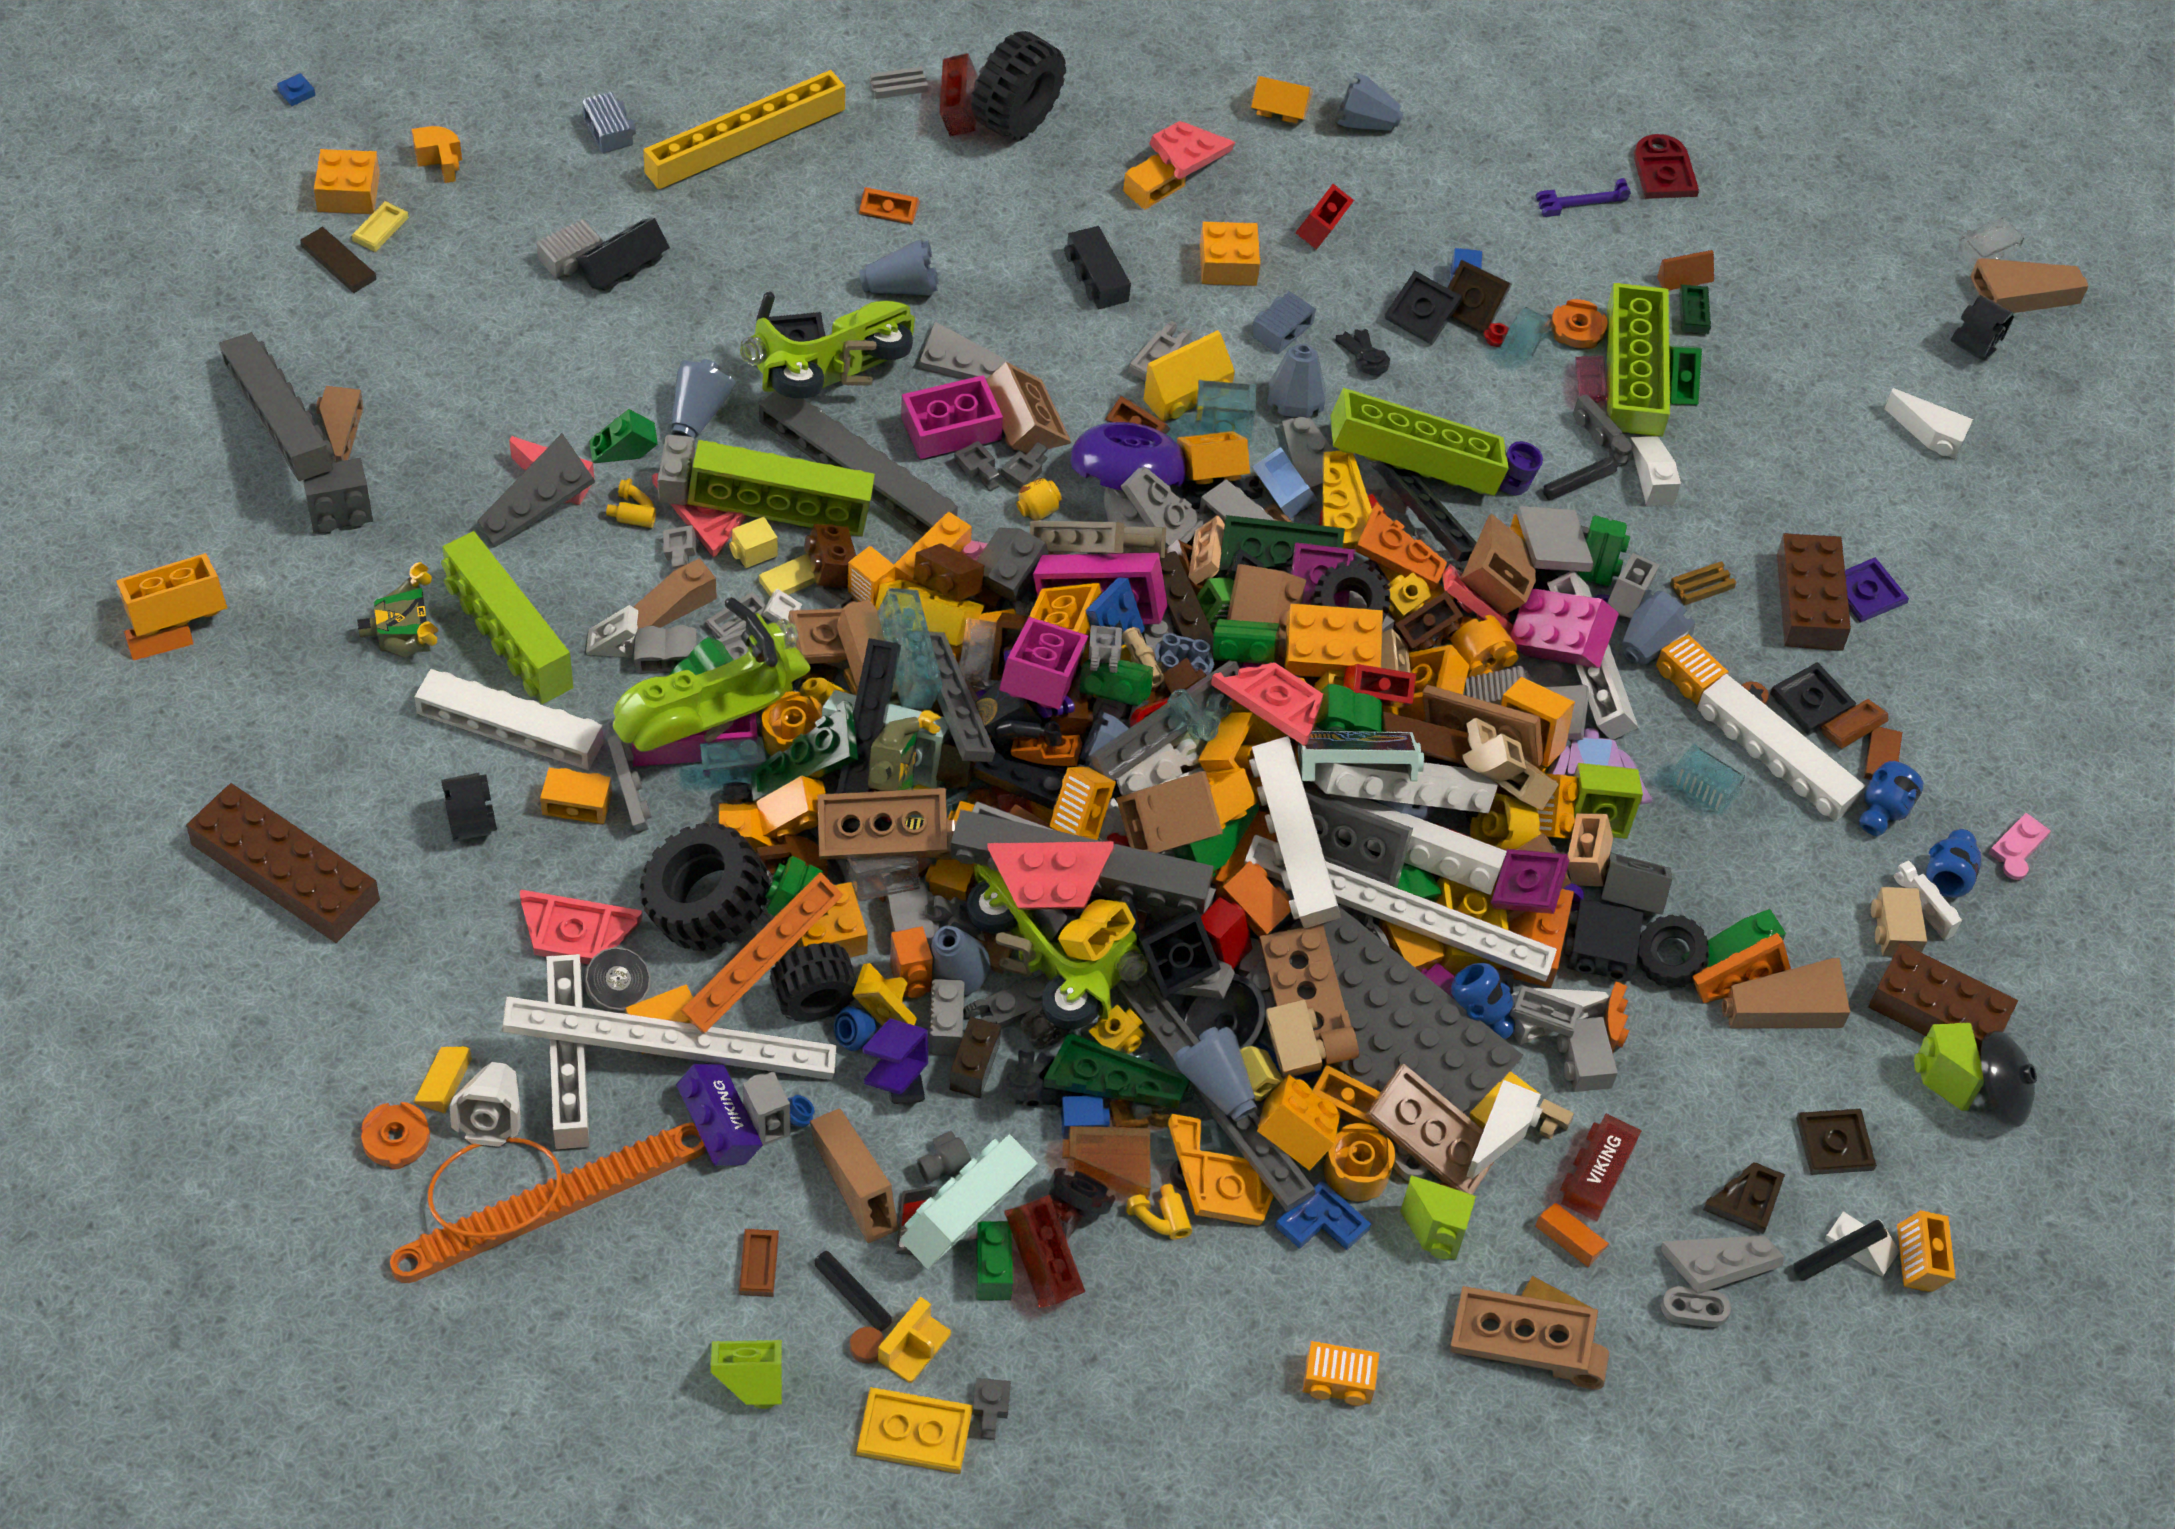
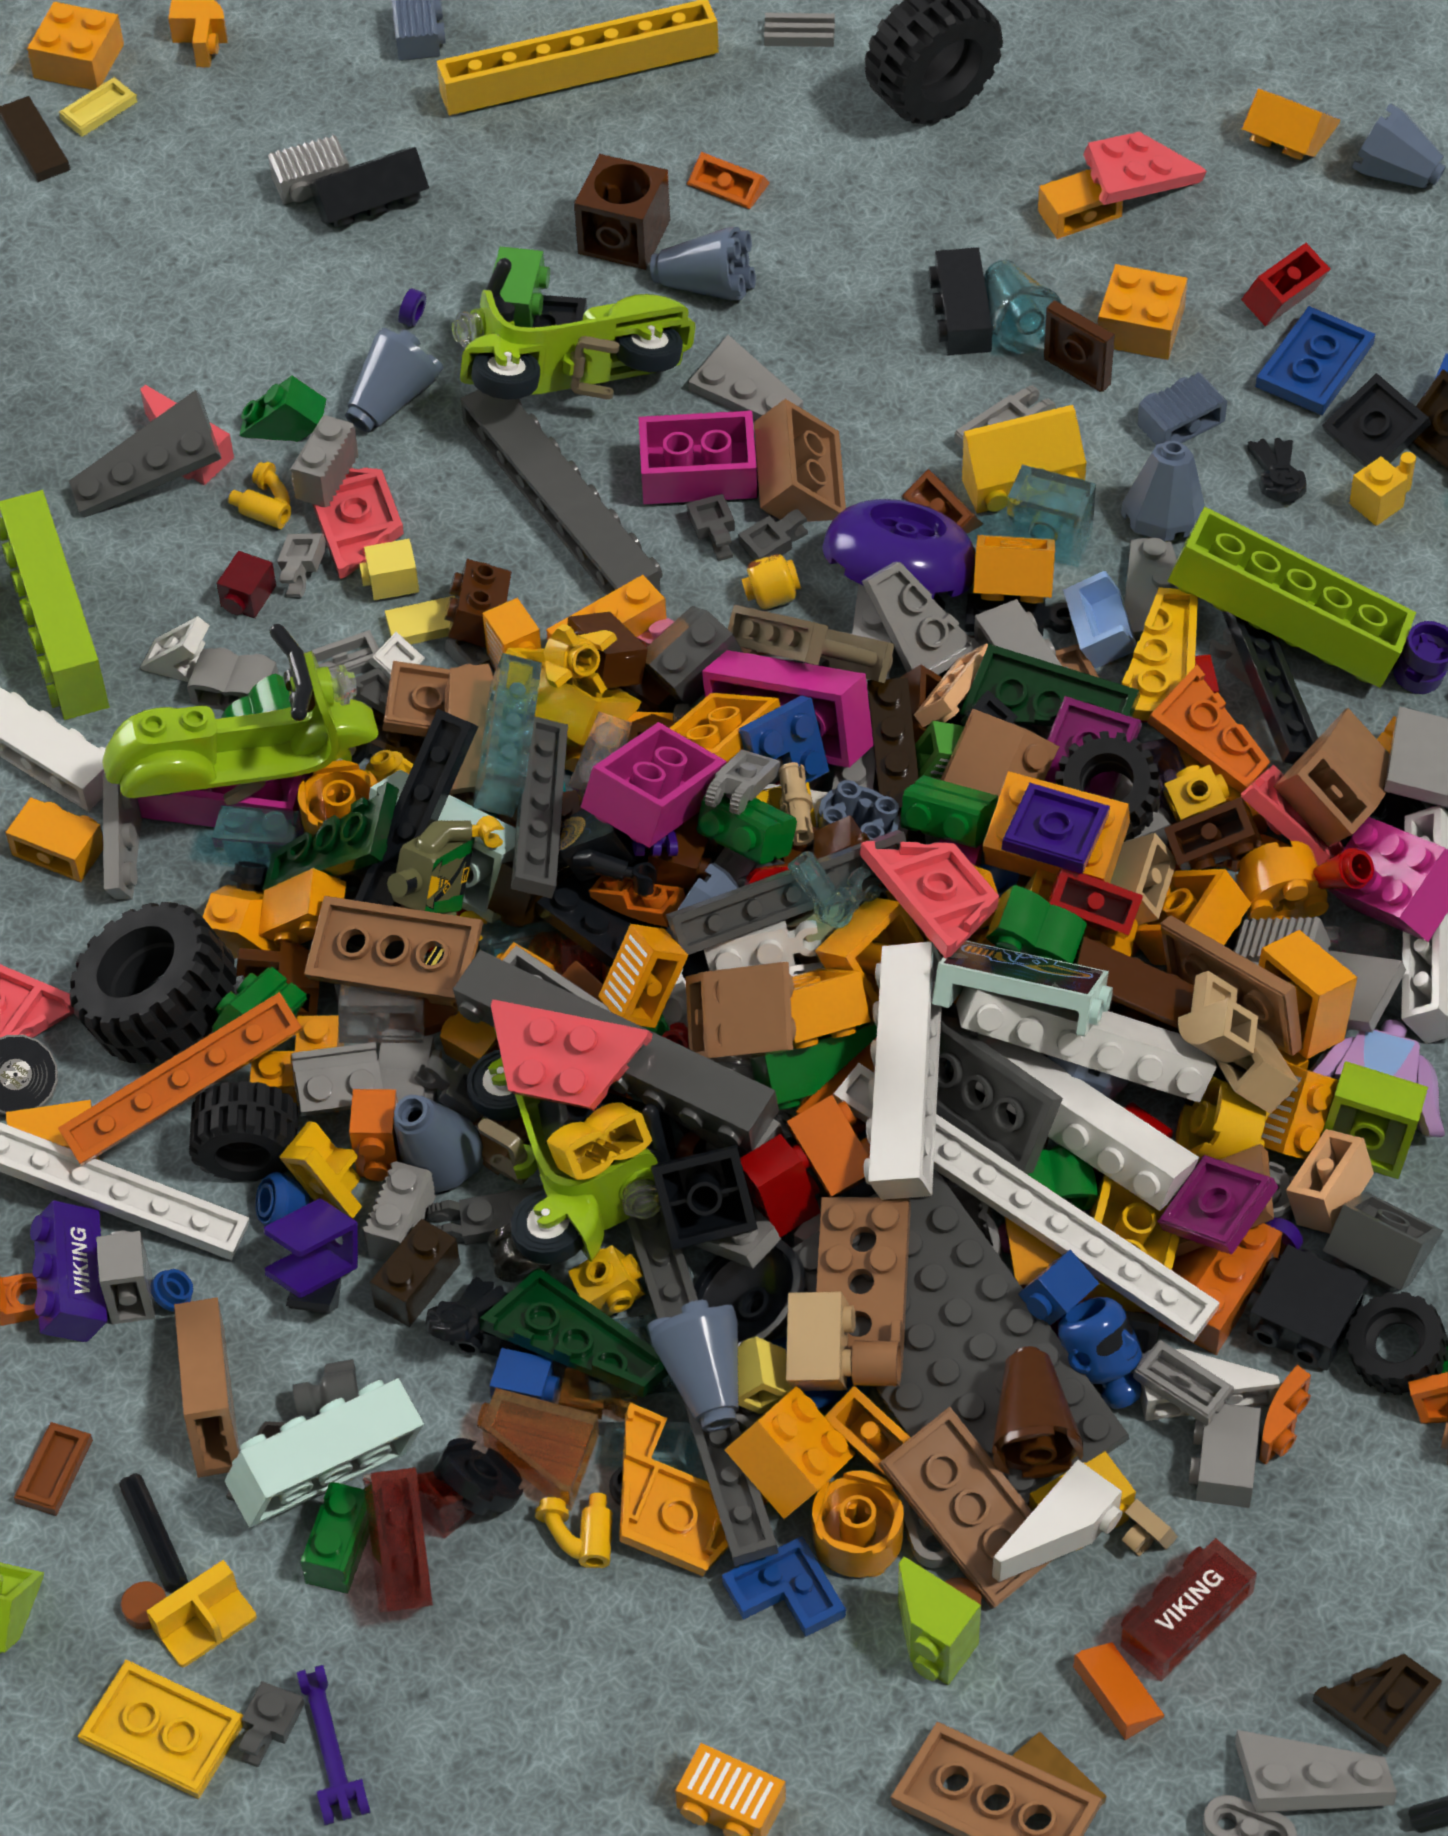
camera: 25 degrees right, 0 degrees up
(645, 572) = (246, 584): none -> dark red brick
(677, 595) = (286, 603): medium nougat slope -> none
(690, 341) = (412, 307): none -> dark purple tile
(779, 487) = (441, 506): lime brick -> none
(781, 304) = (524, 283): none -> bright green brick
(826, 241) = (622, 211): none -> reddish brown brick
(868, 927) = (327, 1076): none -> light grey plate
(939, 580) = (576, 657): none -> yellow brick
(956, 92) = (847, 66): clear red brick -> none
(1062, 1442) = (340, 1790): none -> dark purple hinge
(1145, 264) = (1017, 306): none -> clear light blue cone
(1197, 286) = (1078, 346): none -> reddish brown tile
(1342, 637) = (1055, 828): none -> dark purple tile
(1362, 268) = (1315, 360): none -> blue plate
(1443, 352) = (1382, 488): none -> yellow brick
(1445, 963) = (1058, 1288): none -> blue brick
(1463, 1058) = (1034, 1419): none -> reddish brown cone
(1531, 629) = (1345, 871): none -> red cone

